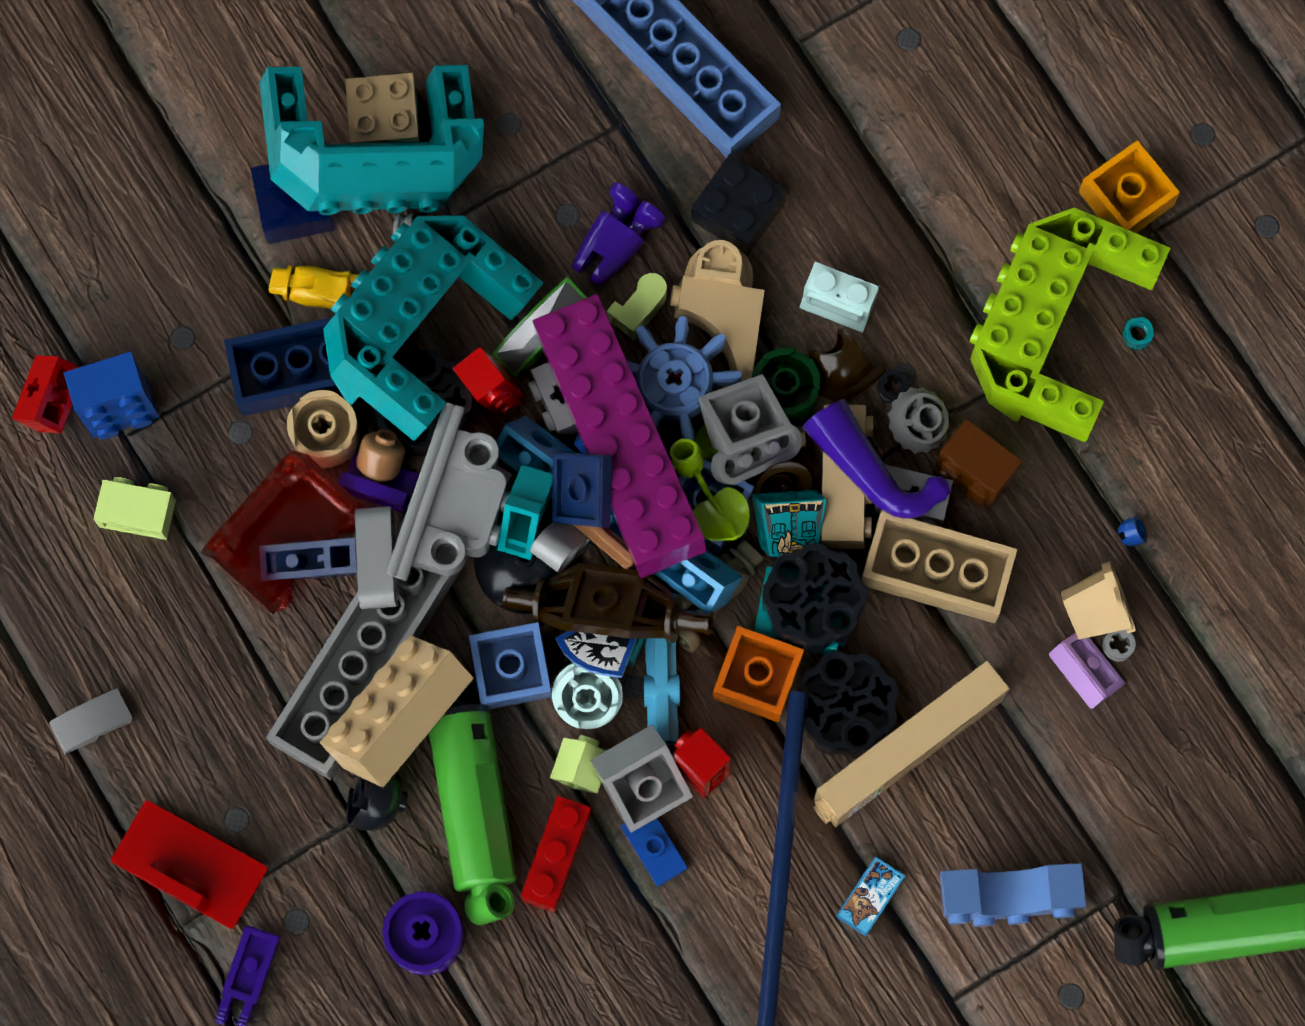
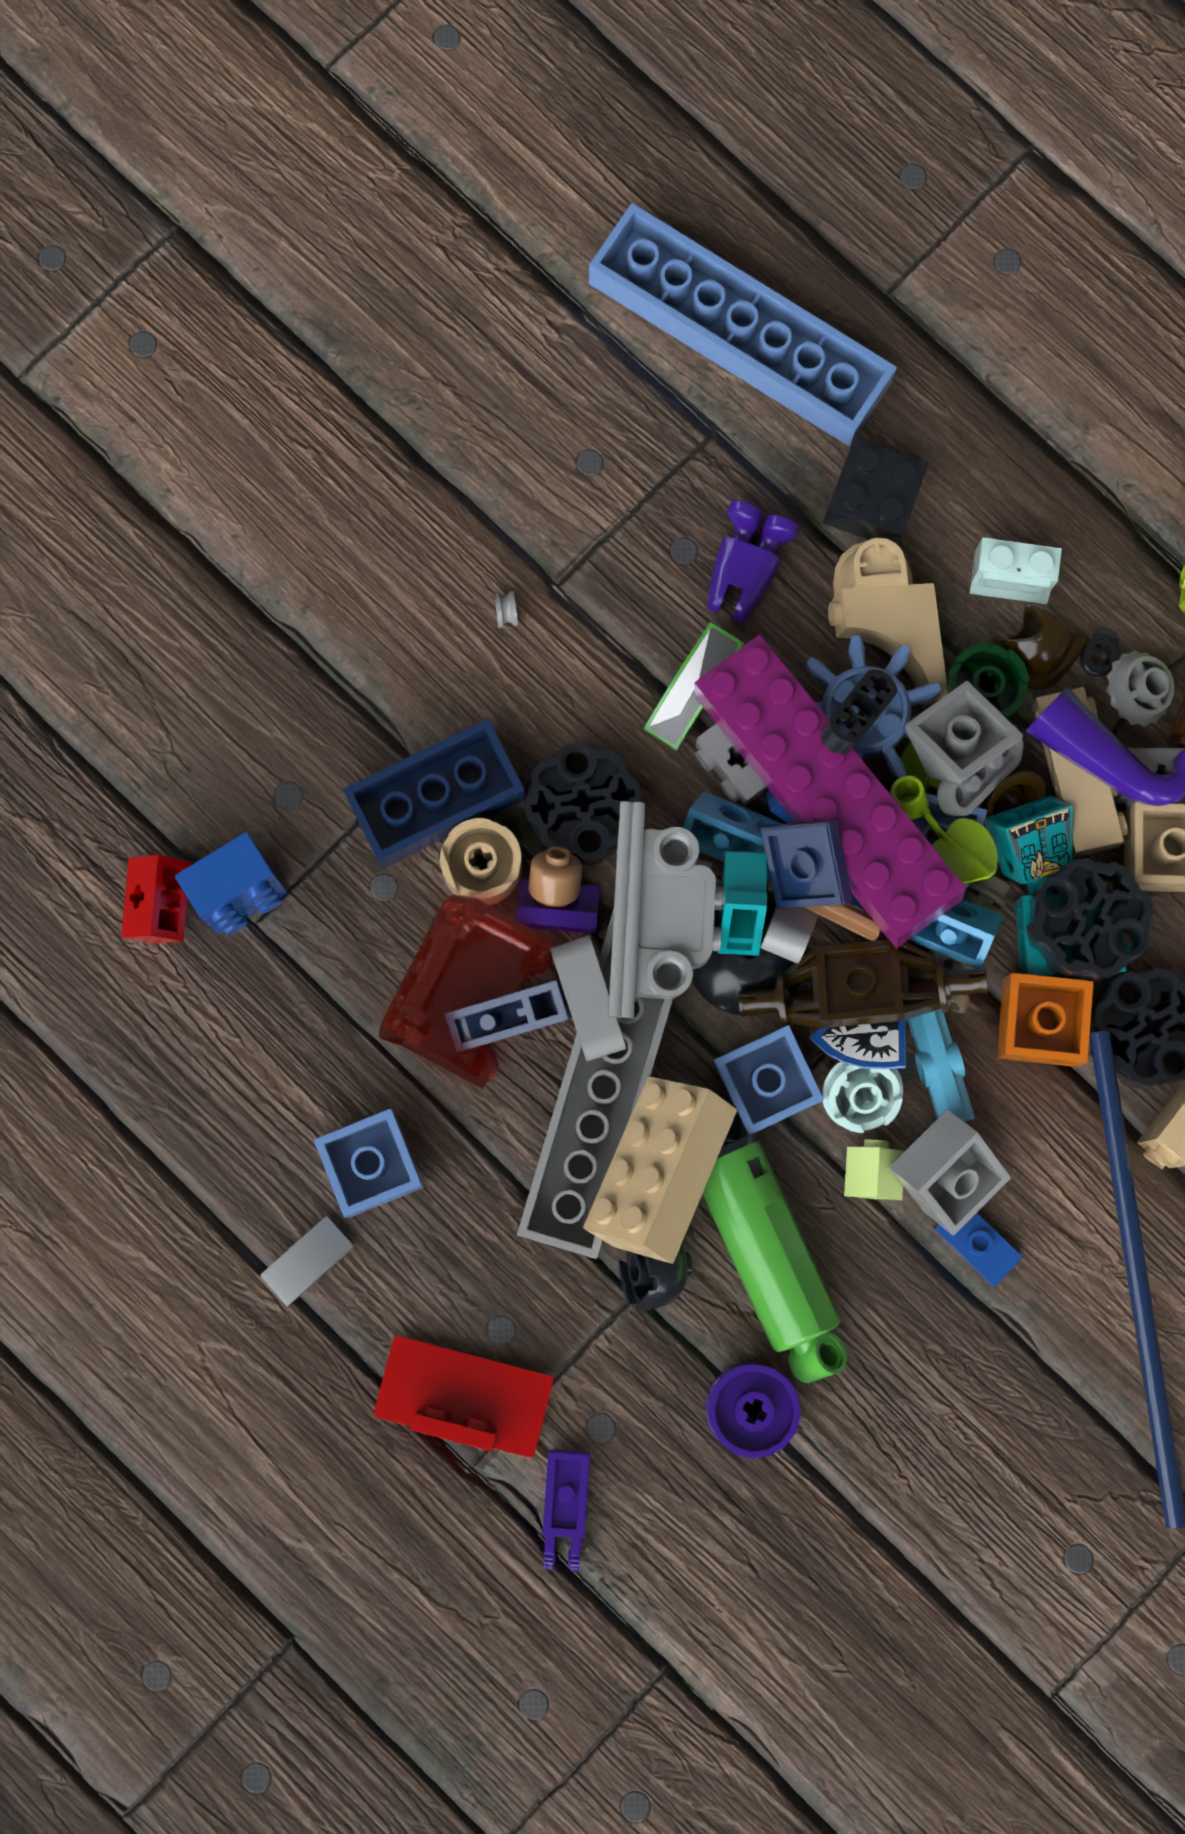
camera: 20 degrees left, 5 degrees up
(135, 508) = (290, 1005): yellowish green brick -> none
(163, 652) = (369, 1163): none -> medium blue brick
(283, 216) = (372, 606): clear blue brick -> none
(311, 285) = (444, 699): yellow piece -> none
(371, 174) = (460, 556): teal wedge -> none
(383, 109) = (448, 485): tan brick -> none
(396, 300) = (532, 696): teal wedge -> none
(489, 382) = (659, 765): red brick -> none
(556, 854) = (875, 1281): red brick -> none
(641, 306) = (802, 623): yellowish green leg -> none
(655, 387) = (856, 724): none -> black beam
(701, 762) = (1018, 1138): red brick -> none

